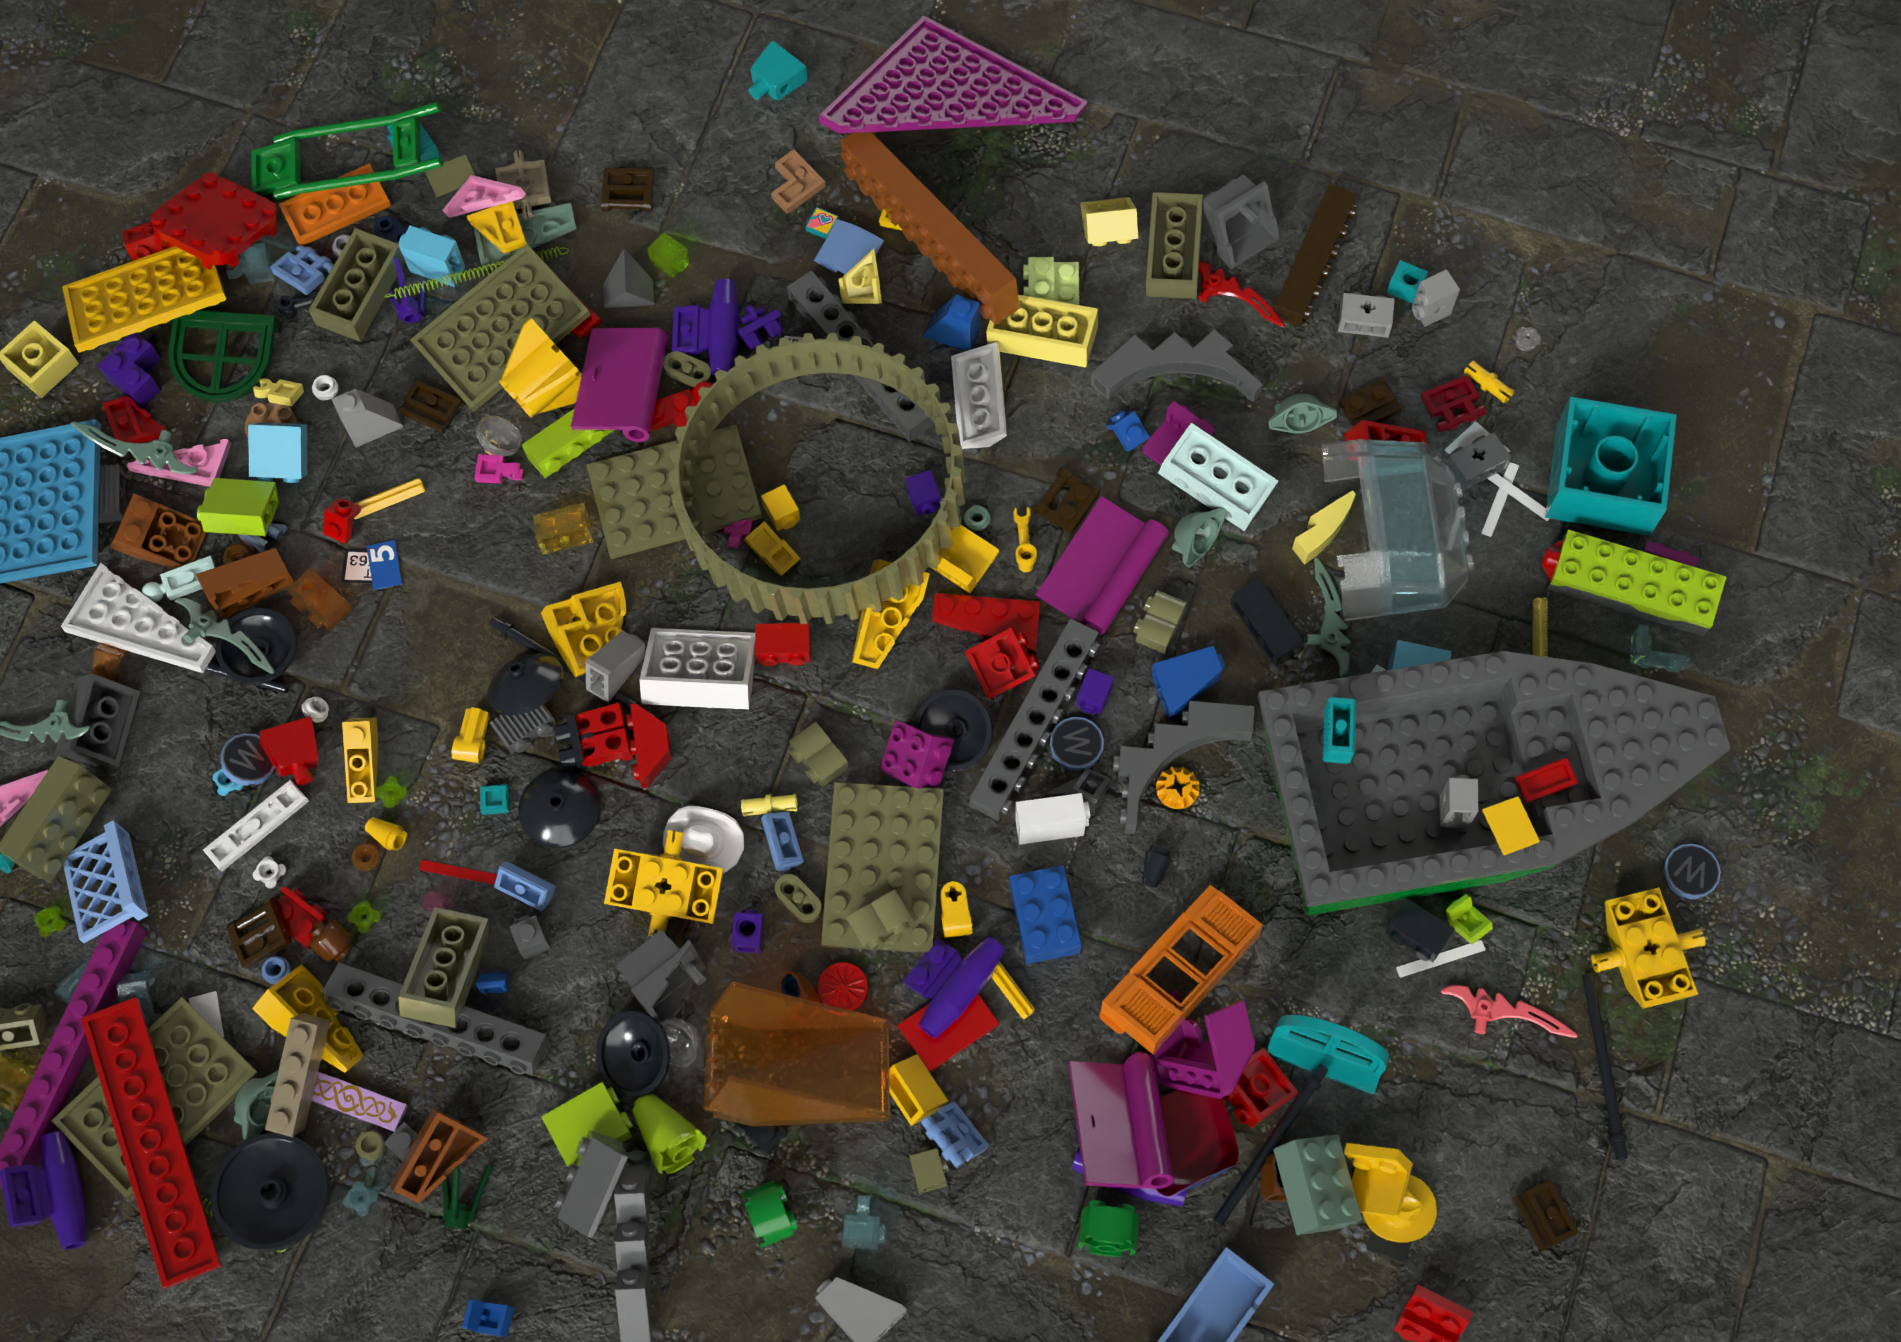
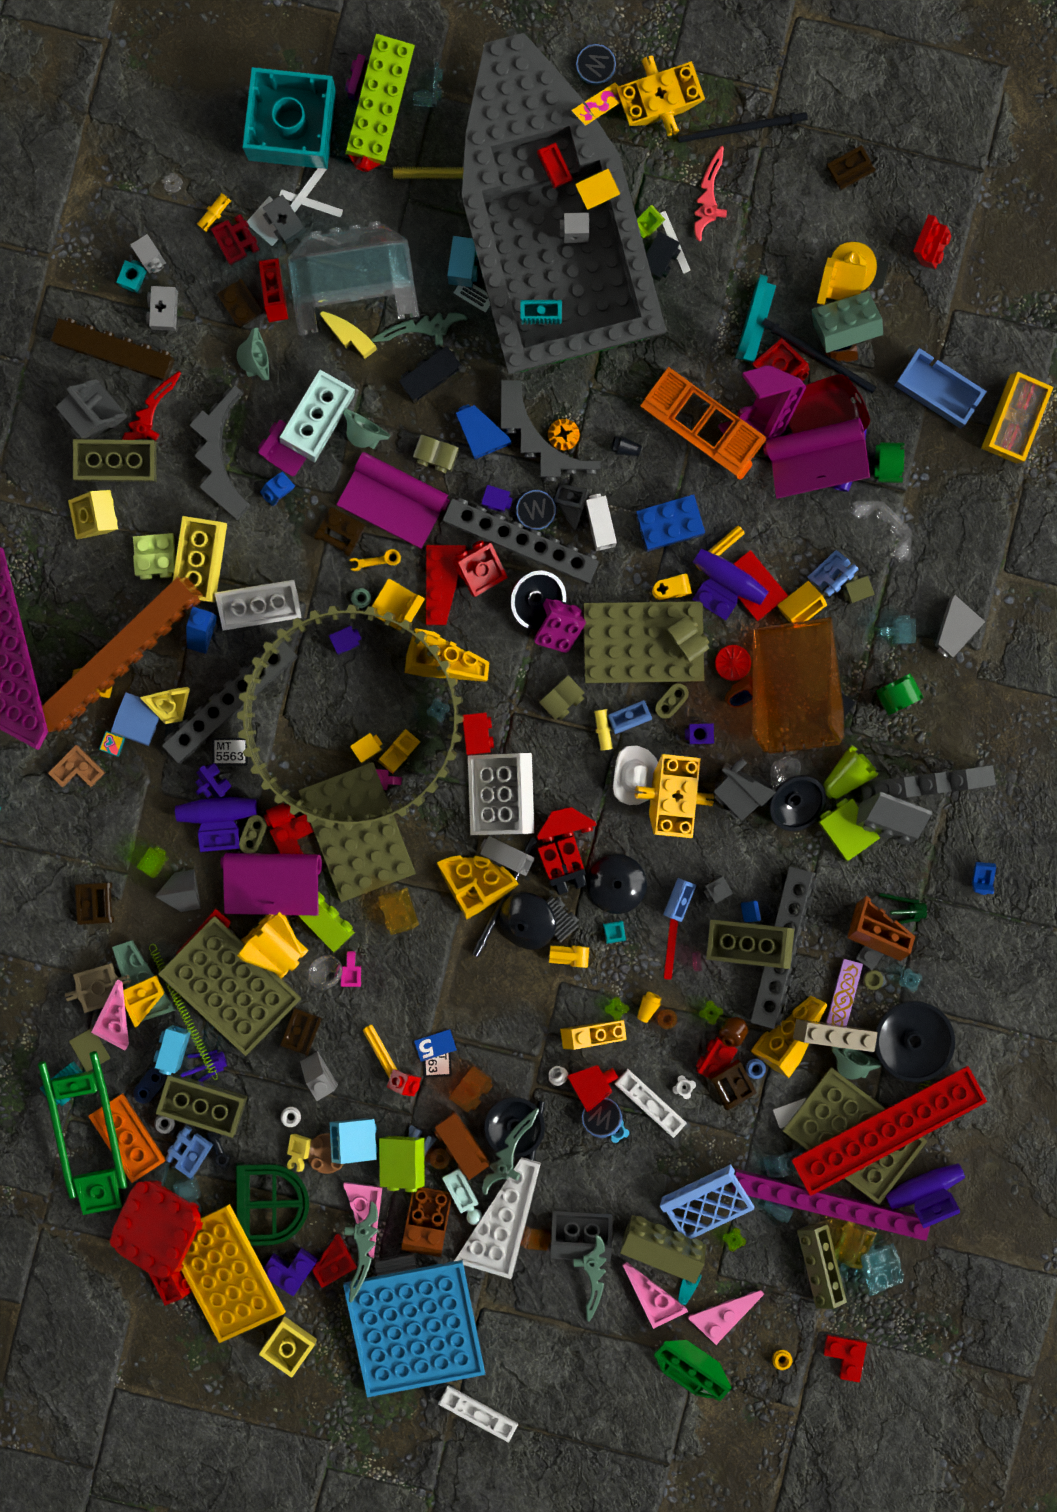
camera: 95 degrees left, 20 degrees up
(985, 1242) = (863, 509): none -> clear slope
(1631, 845) = (598, 104): none -> yellow sticker

